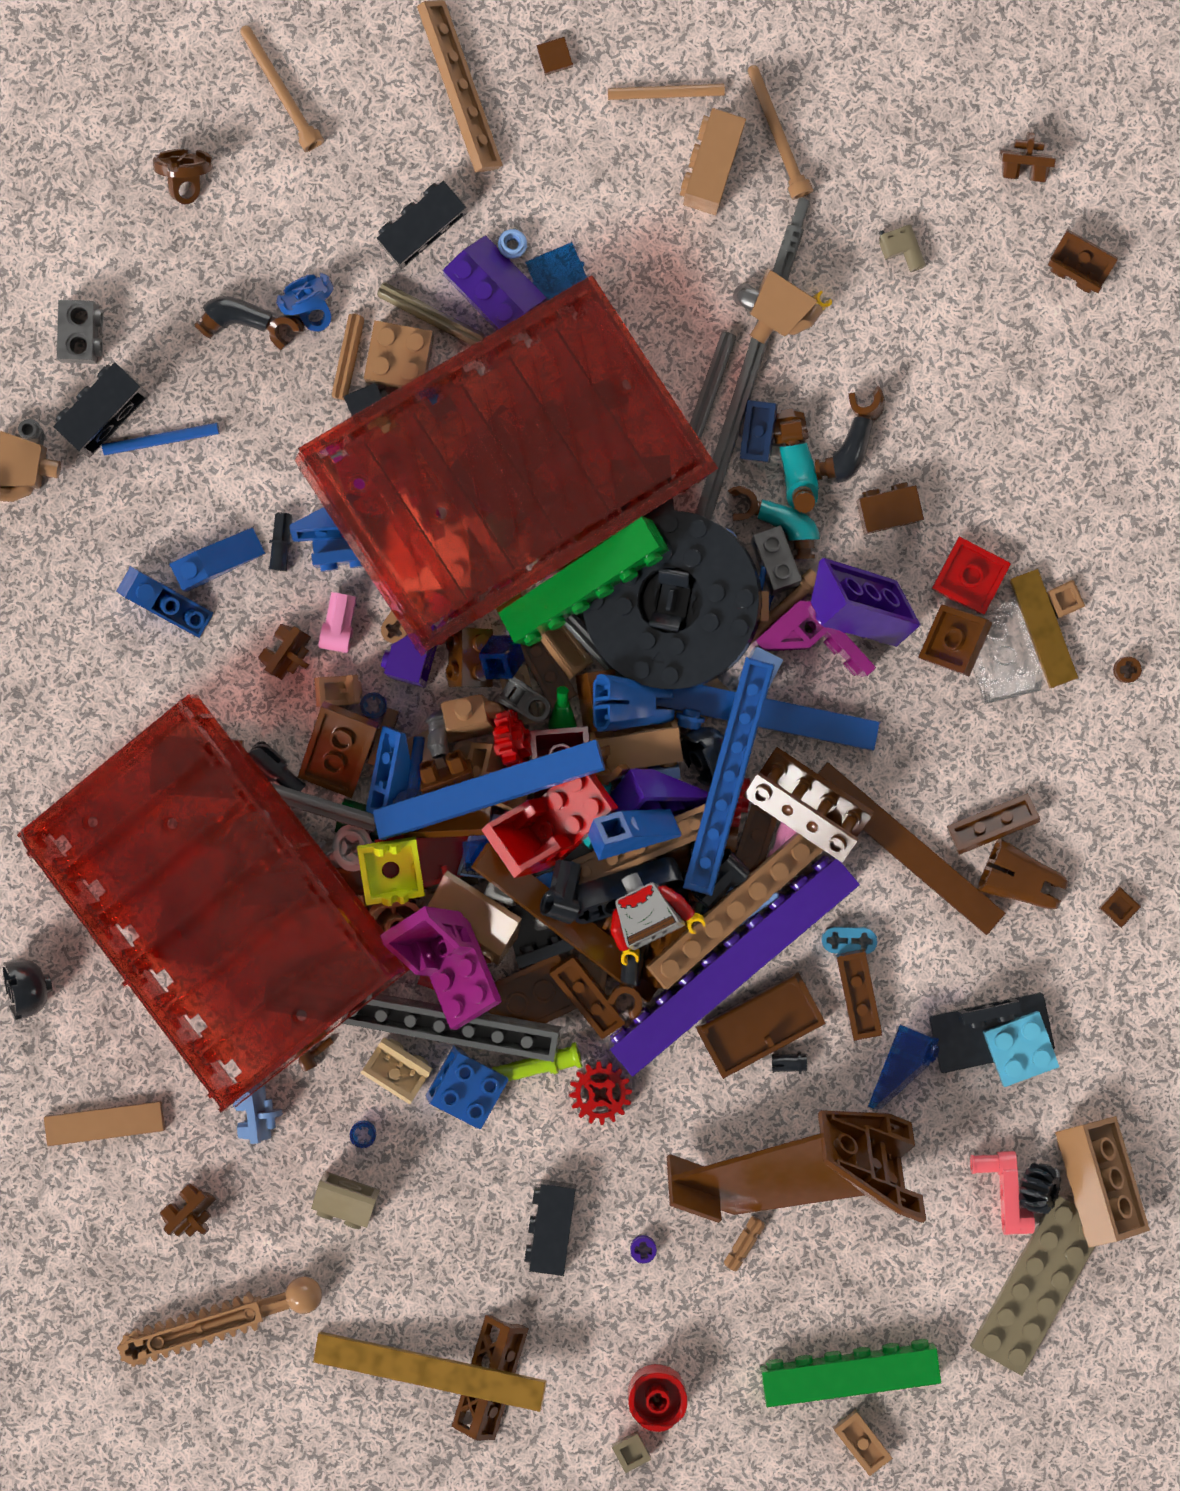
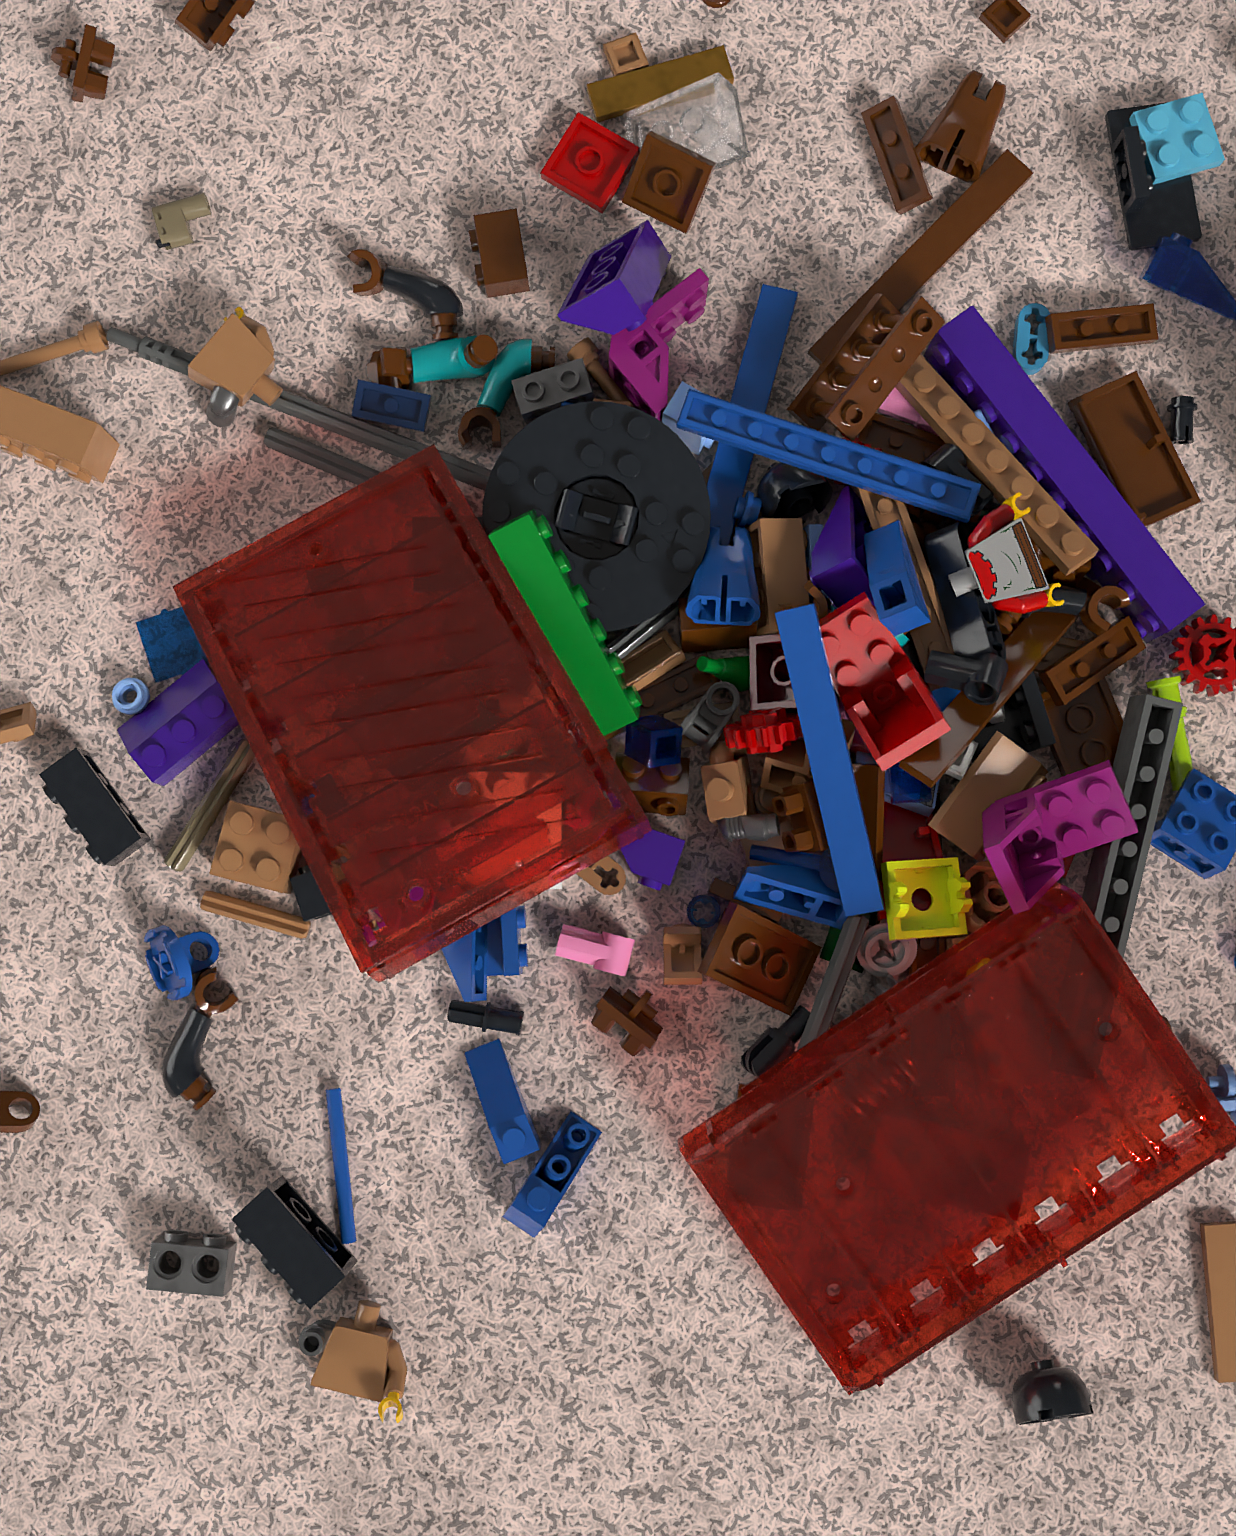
camera: 90 degrees left, 5 degrees down
(397, 1070) = (1174, 912): tan bracket -> none

